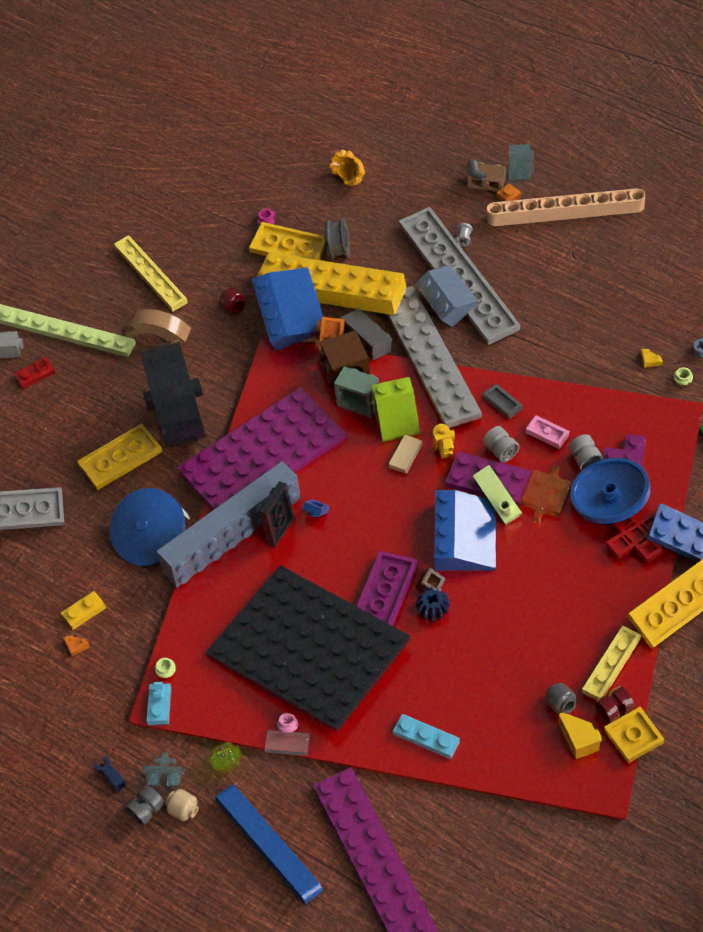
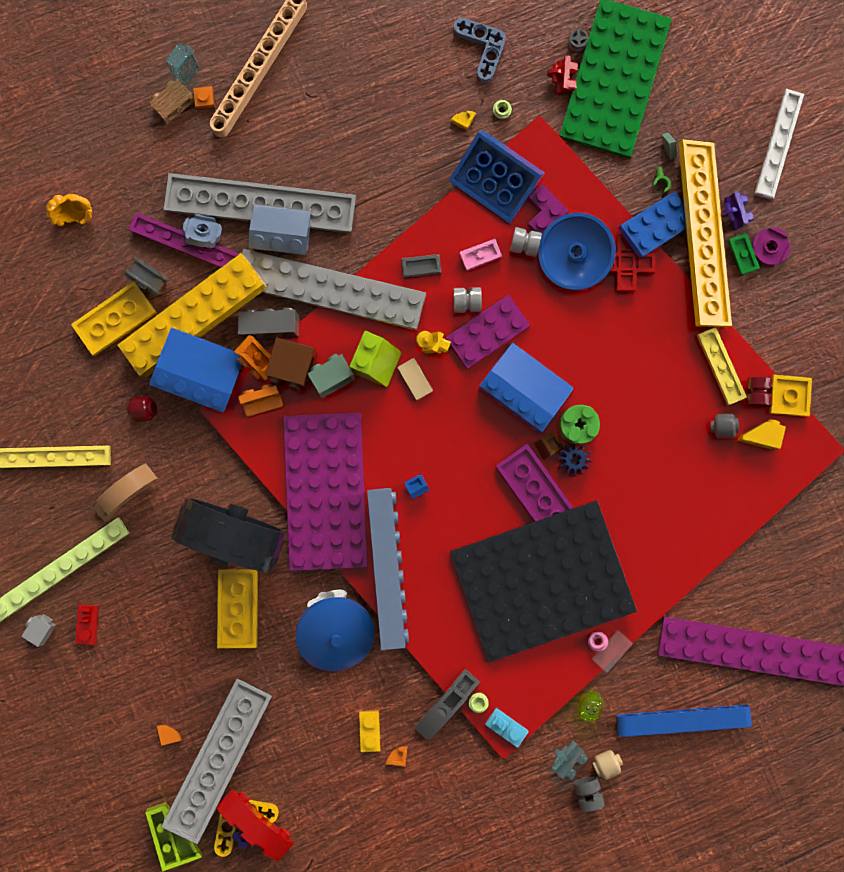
camera: 65 degrees left, 30 degrees up
(111, 775) = (540, 801): dark blue bar -> none
(146, 643) = (447, 705): none -> dark grey slope
(266, 216) = (59, 316): dark pink plate -> none
(276, 513) = (414, 535): black plate -> none
(301, 363) = (261, 400): none -> orange bracket
(382, 240) = (175, 239): none -> magenta plate
(402, 251) = (195, 237): none -> sand blue plate
(426, 736) = (681, 544): medium azure plate -> none
(463, 236) = (221, 167): light grey bush -> none
(465, 586) = (584, 415): none -> bright green brick
(473, 170) = (164, 109): dark grey arm -> none
(497, 494) = (514, 339): yellowish green piece -> none
(546, 493) = (536, 299): clear orange plate -> none
(622, 401) = (496, 176): none -> blue slope

